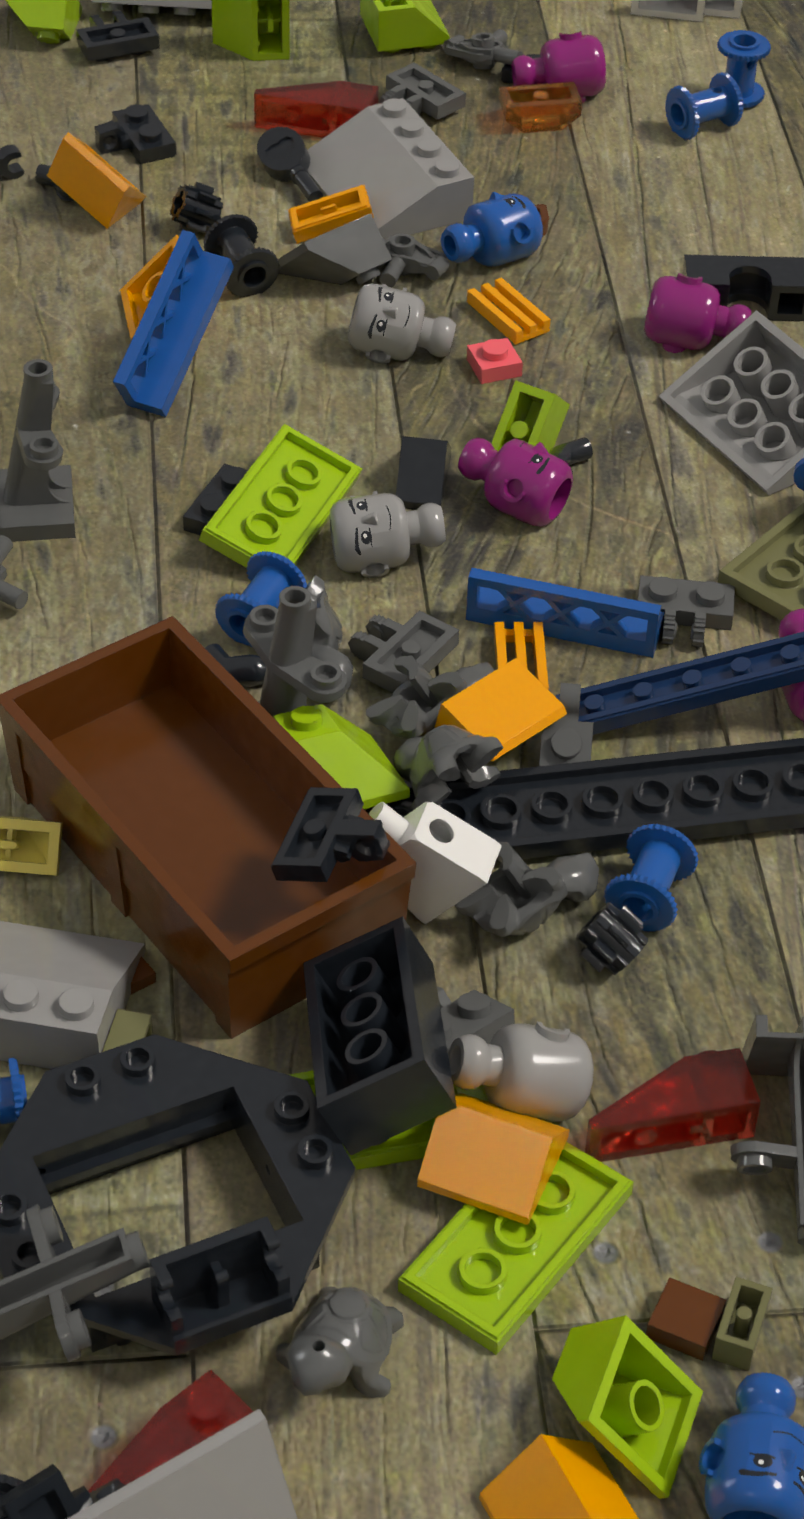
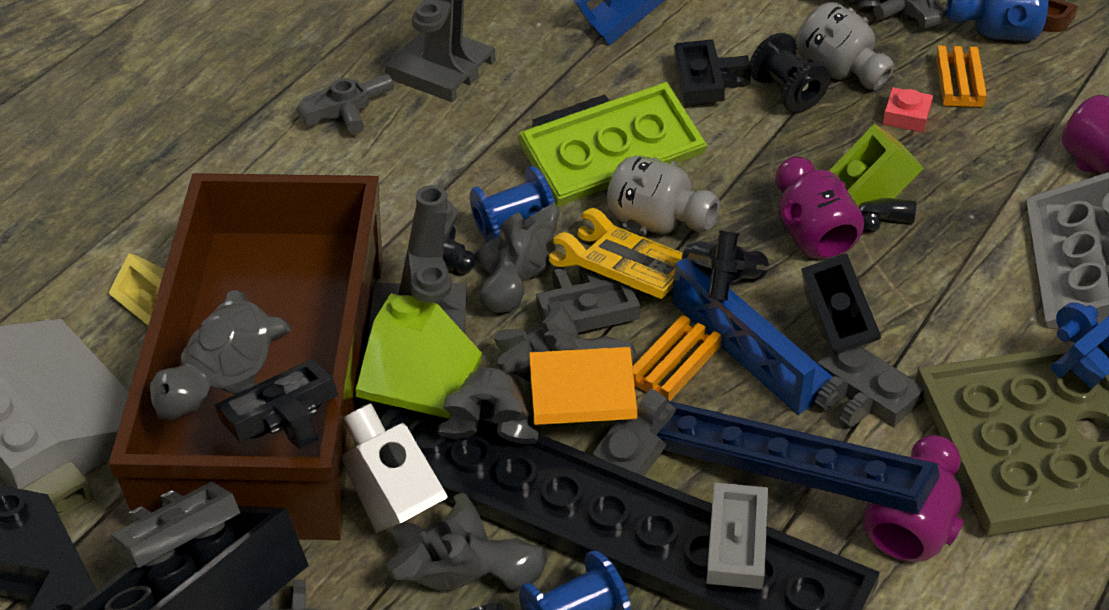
camera: 40 degrees right, 0 degrees up
(239, 816) = (221, 354): none -> dark grey animal
(292, 402) = (705, 75): none -> black hinge
(319, 986) = (155, 535): none -> dark grey hinge
(375, 368) = (777, 62): none -> black hose
(397, 597) = (619, 255): none -> yellow flag
(422, 471) = (747, 170): black slope -> none
(506, 554) = (725, 262): none -> black pin
(621, 550) = (839, 304): none -> black slope
(726, 759) = (738, 536): none -> light grey plate

